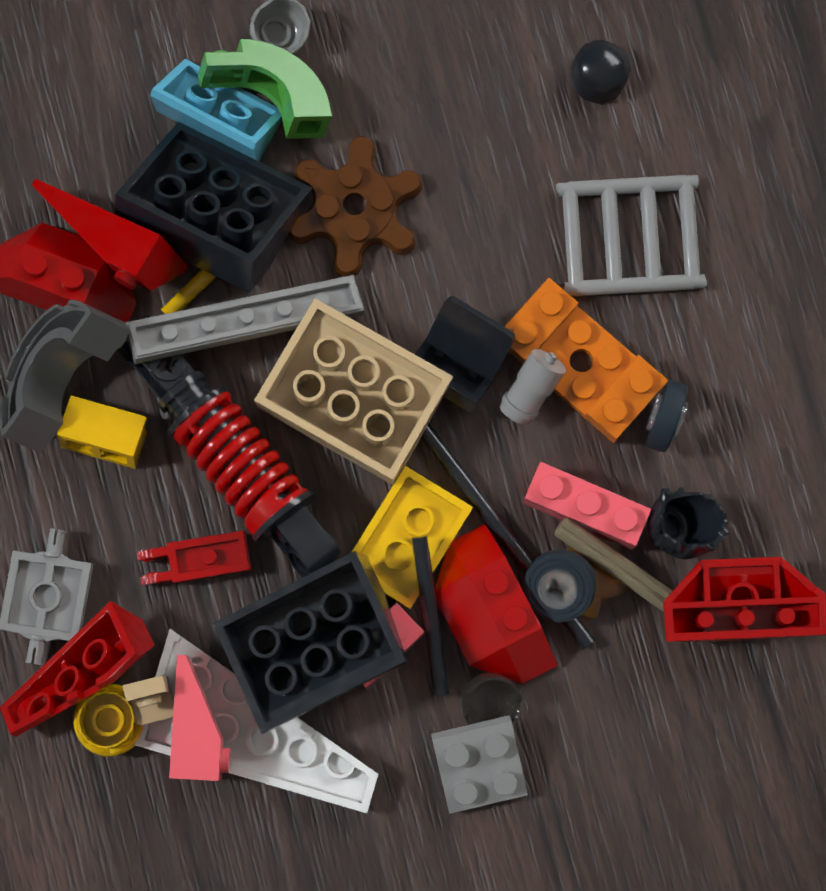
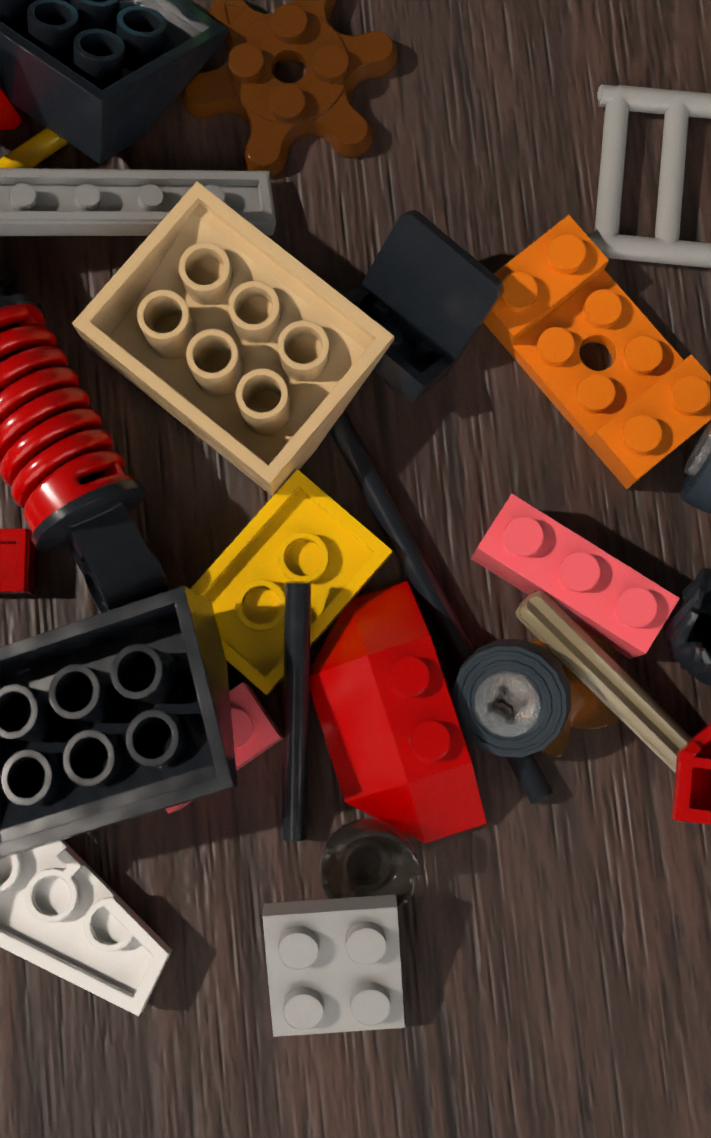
camera: 10 degrees right, 0 degrees up
(533, 385) = (521, 372): light grey piece -> none

